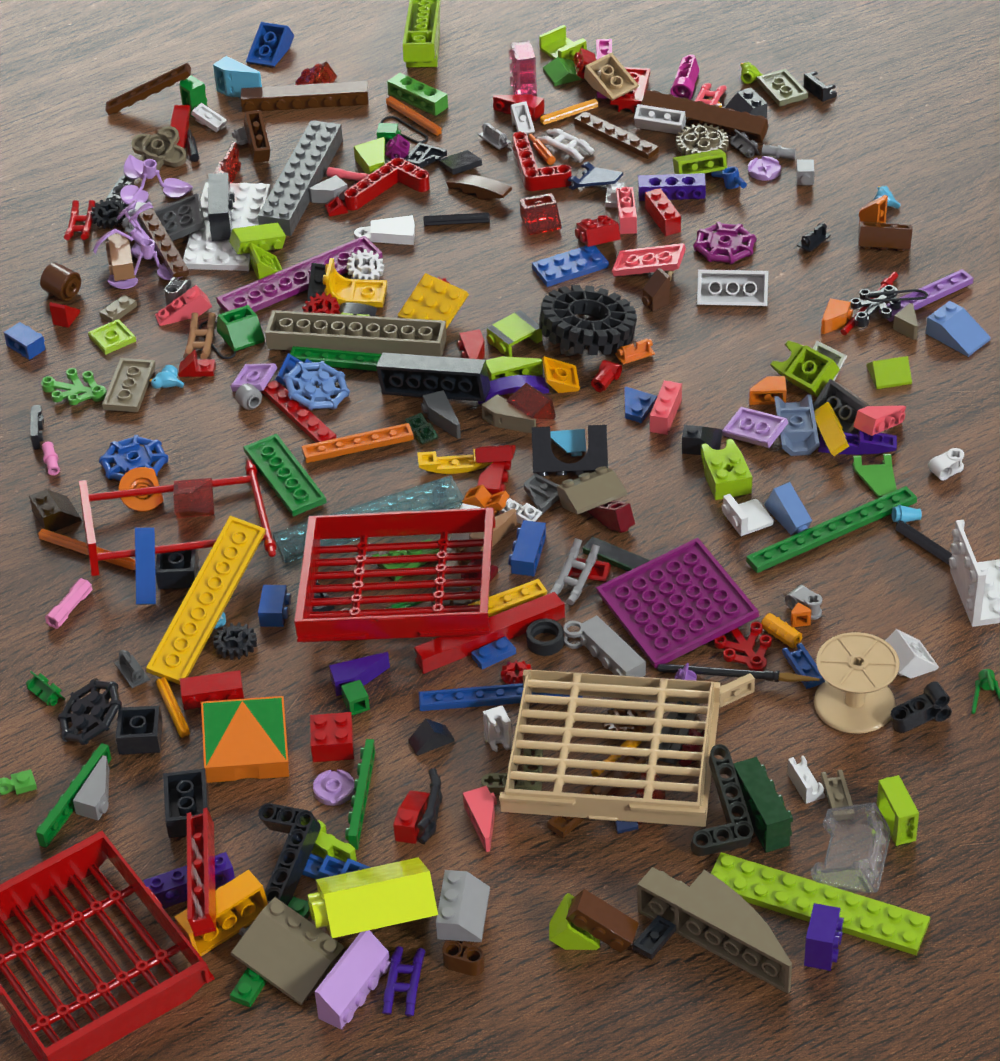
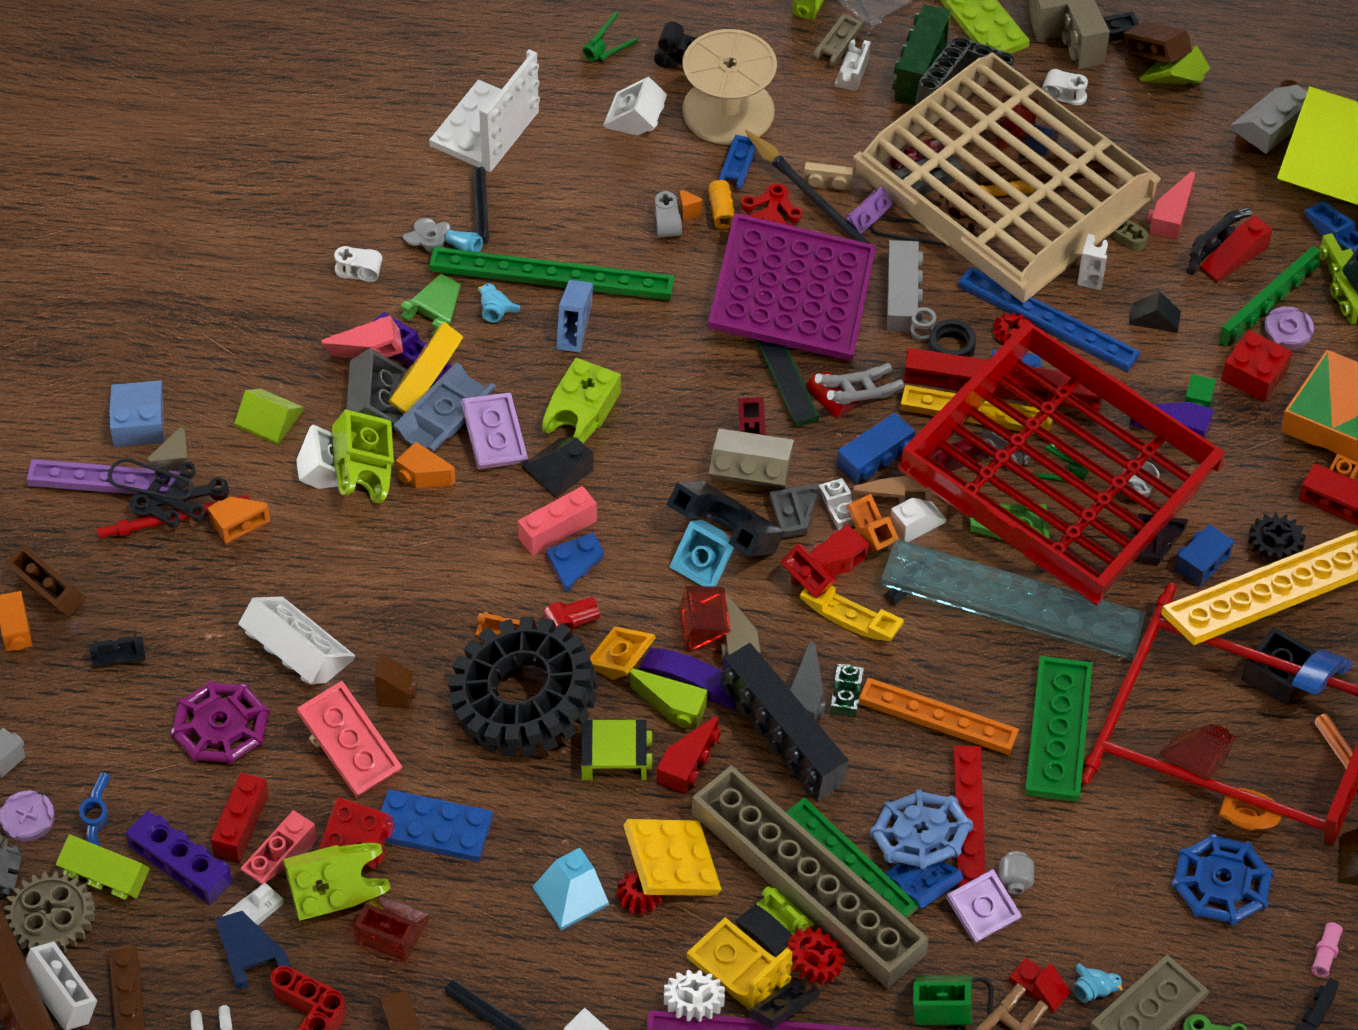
camera: 145 degrees left, 10 degrees up
(472, 277) = (571, 889): none -> medium azure slope
(586, 205) = (340, 875): none -> lime brick
(643, 859) = (1064, 85): none -> white piece
(746, 516) = (617, 341): white bracket -> none
(842, 492) = (495, 303): none -> medium azure animal
(933, 508) = (427, 234): none -> light grey plate

